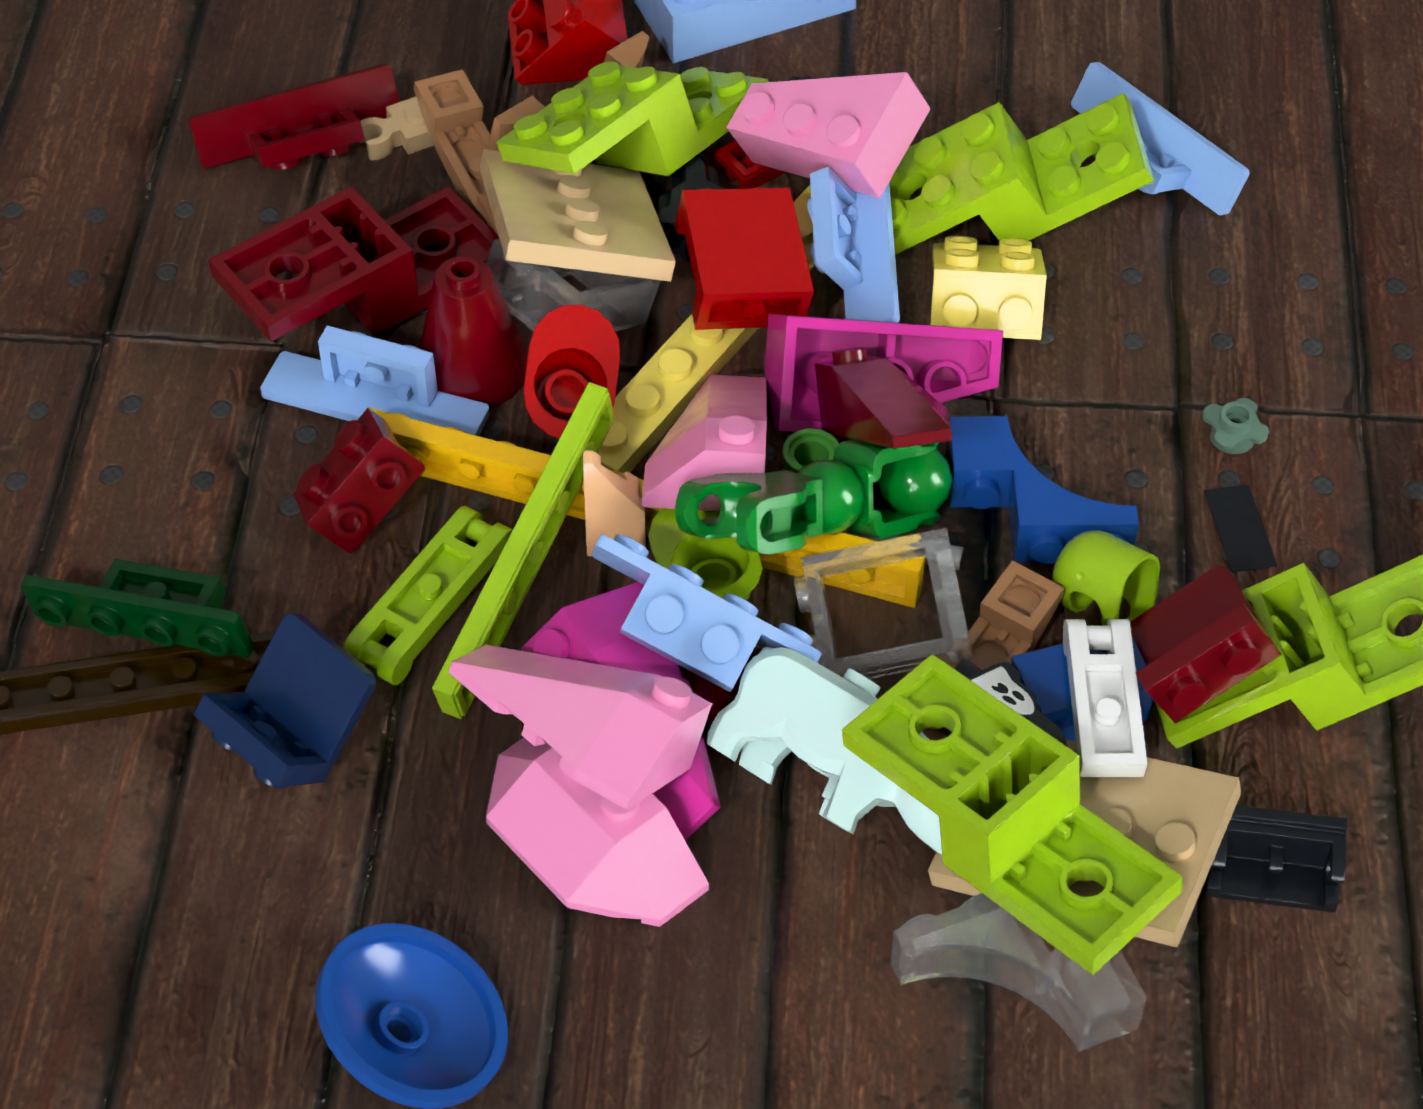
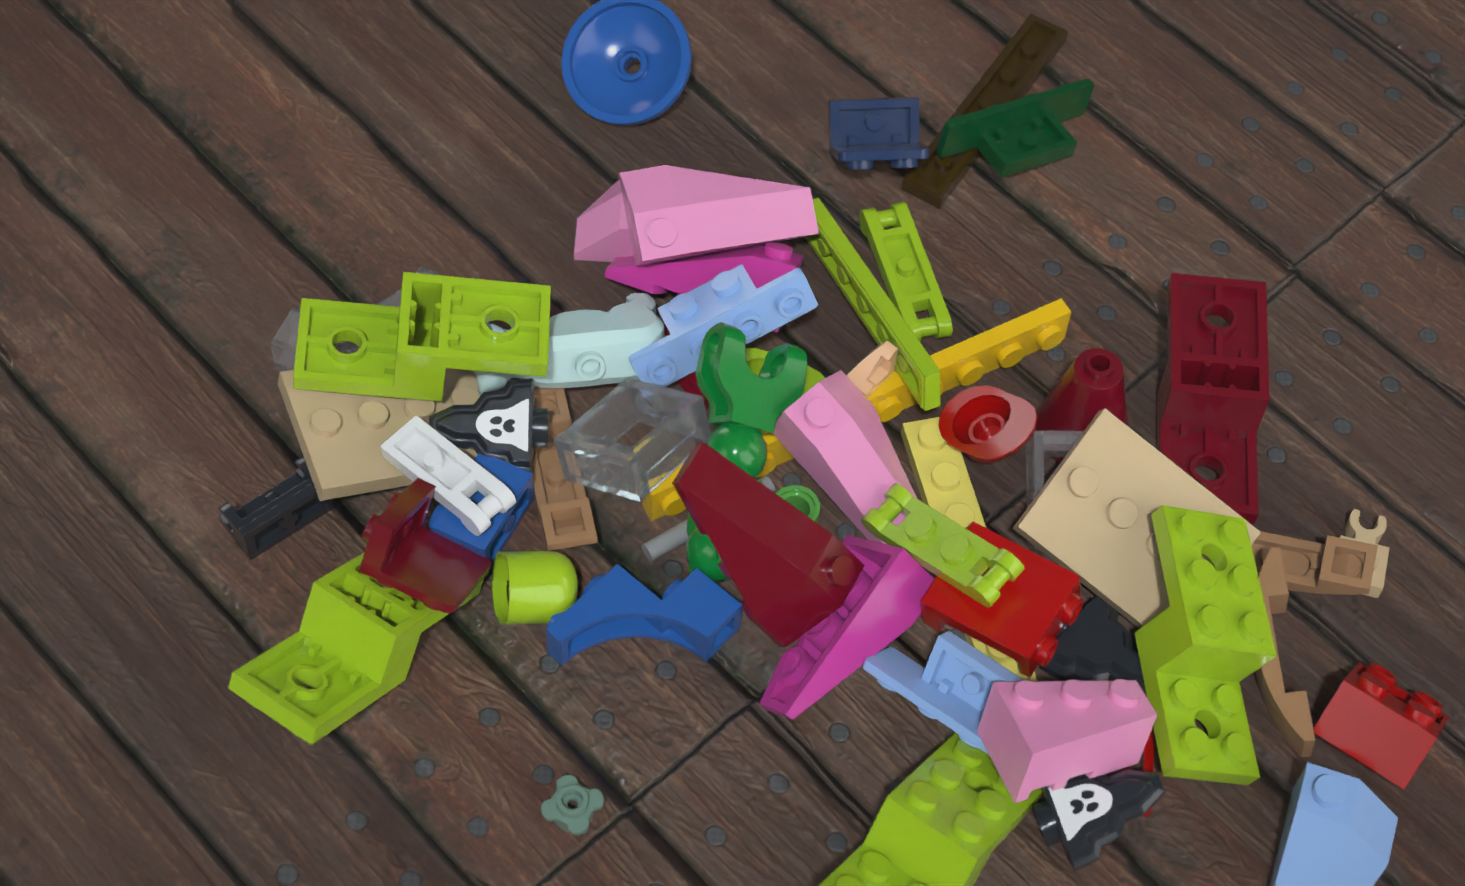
camera: 130 degrees right, 5 degrees up
(295, 121) = (1408, 479): dark red bracket -> none
(356, 482) = (1022, 265): dark red bracket -> none
(369, 373) = (1123, 335): light blue bracket -> none
(753, 295) = (943, 546): none -> lime plate
(989, 286) = (848, 765): light yellow bracket -> none
(1240, 528) = (501, 738): black sticker -> none

